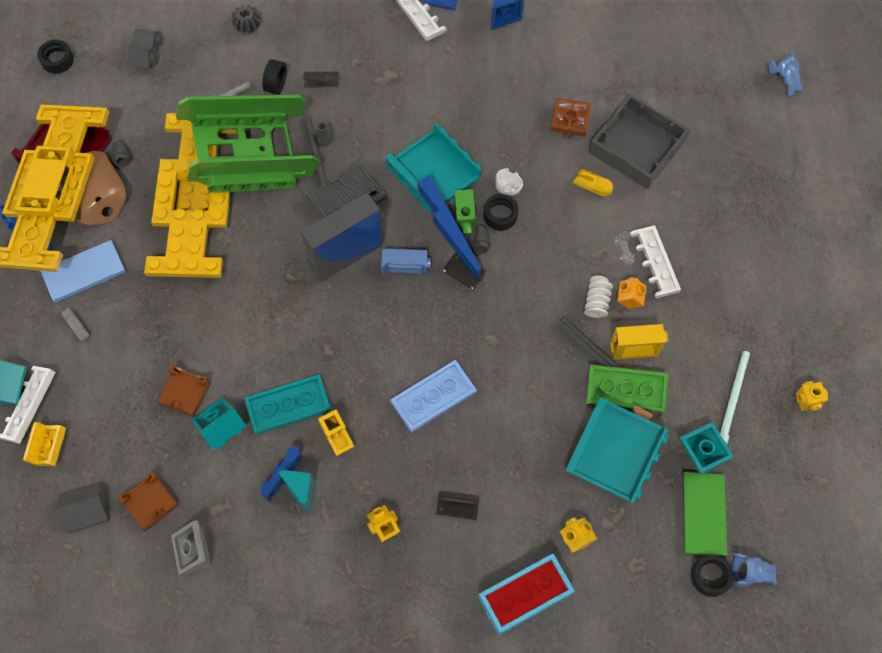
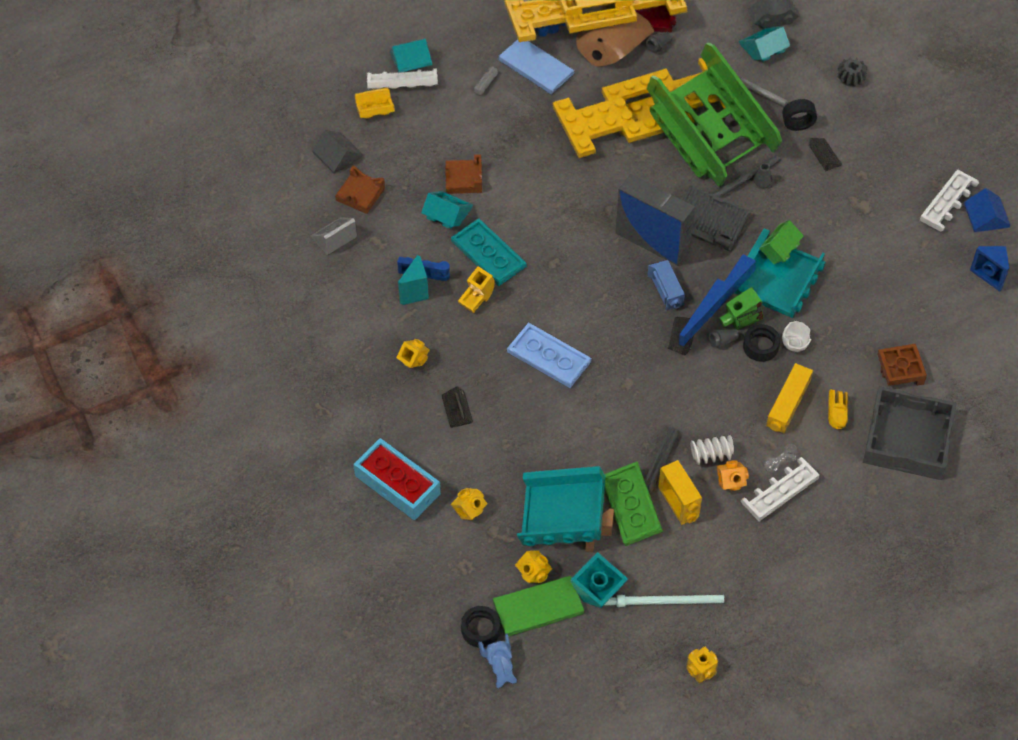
camera: 70 degrees right, 10 degrees down
(174, 69) = (765, 43): none -> teal slope
(408, 149) = (781, 242): none -> bright green brick
(568, 215) = (789, 398): none -> yellow brick
(668, 501) = (533, 567): none -> yellow brick

